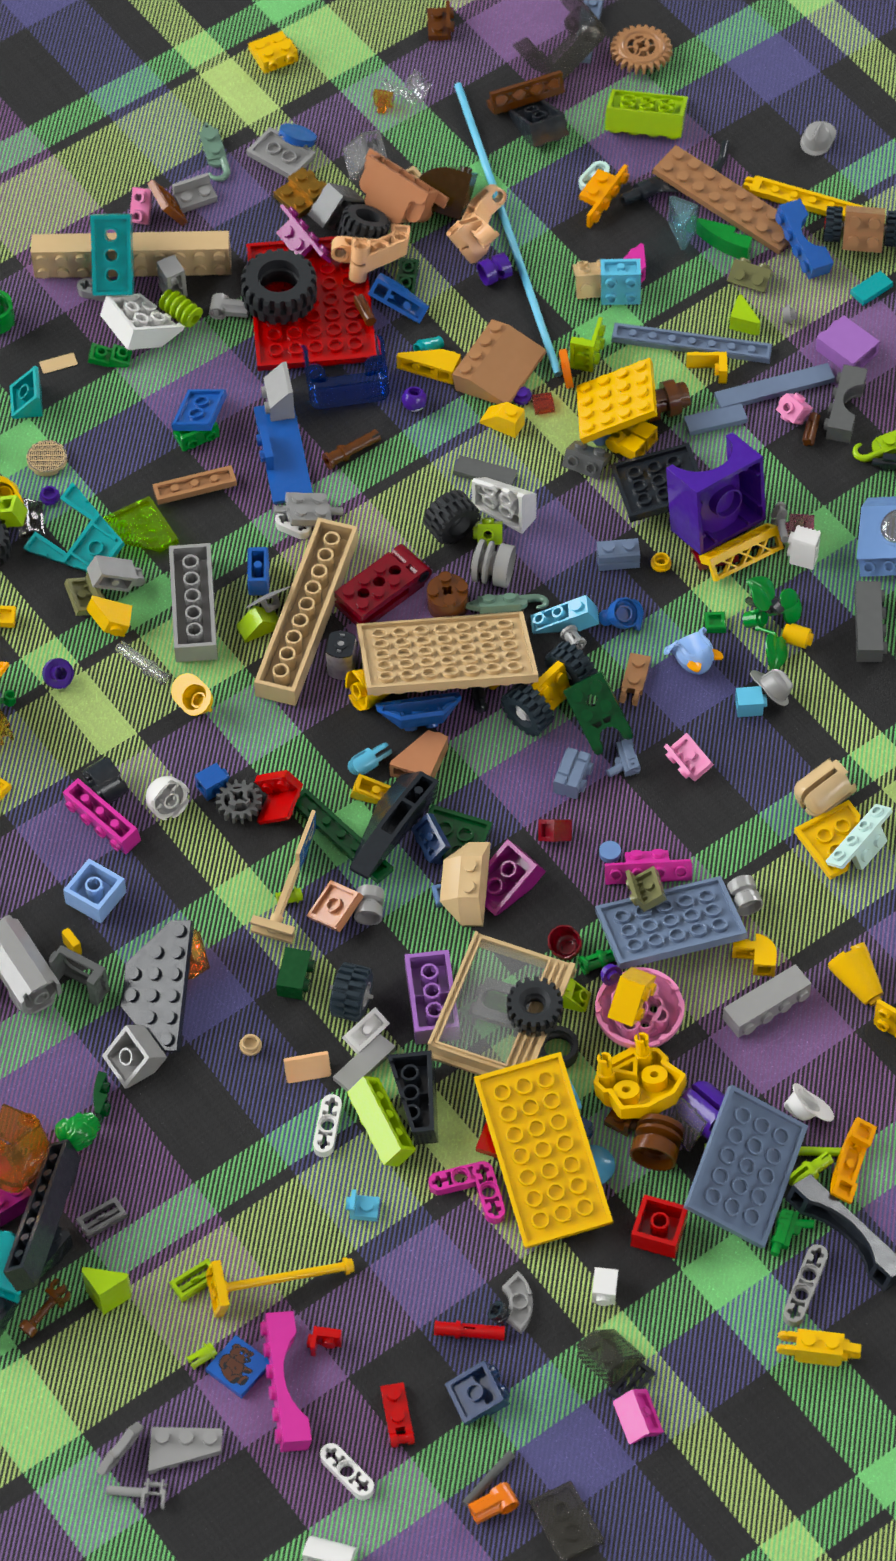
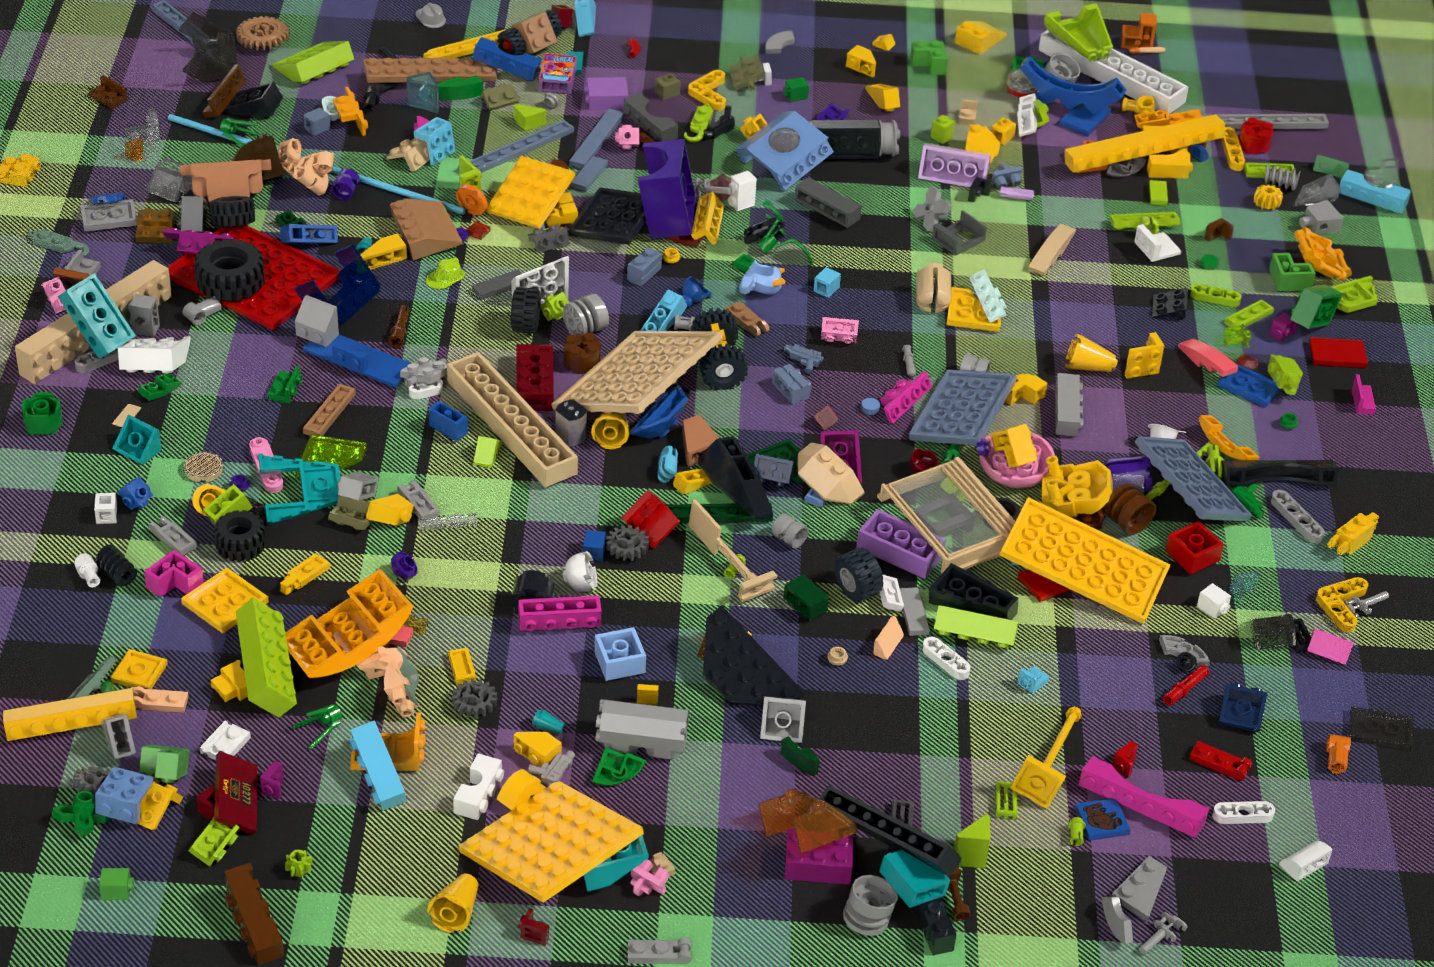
camera: 55 degrees left, 15 degrees down
(79, 1129) = (818, 781): green hair -> none
(94, 491) = (271, 481): none -> bright pink plate
(96, 982) = (704, 702): dark grey panel -> none
(147, 624) = (423, 505): none -> light grey plate
(180, 308) = (172, 329): lime piece -> none
(192, 694) = (512, 509): yellow piece -> none
(193, 602) = (433, 465): light grey brick -> none
(199, 410) = (272, 369): blue tile -> none
(269, 607) = (479, 427): light grey shield -> none
(335, 906) = (773, 545): nougat plate -> none
(364, 310) = (298, 251): reddish brown piece -> none
(369, 253) = (255, 222): light nougat connector -> none
(414, 399) = (400, 275): dark purple piece -> none
(457, 427) = (446, 274): none -> lime piece
(474, 1179) = (1067, 613): dark pink beam -> none
(482, 135) = (230, 126): none -> green plant
(489, 1478) = (1313, 746): dark grey bar -> none
(504, 418) = (470, 249): yellow slope -> none
(505, 603) = (619, 333): sand green plate -> none
(534, 991) = (978, 480): black tyre -> none
(562, 182) = (317, 121): none -> sand blue brick
(597, 717) = (764, 336): dark green brick -> none
(645, 888) = (926, 400): olive bracket -> none
(655, 1296) = (1243, 583): none -> clear light blue bracket
(710, 835) = (908, 357): none -> light grey piece
(710, 1384) = (1330, 598): none -> yellow beam
(714, 360) = (548, 144): yellow bracket -> none
(731, 1412) = (1363, 604): none -> light grey piece
(775, 684) = (830, 259): light grey piece -> none
(797, 635) = (802, 234): yellow brick -> none
(832, 289) = (557, 73): none -> brick

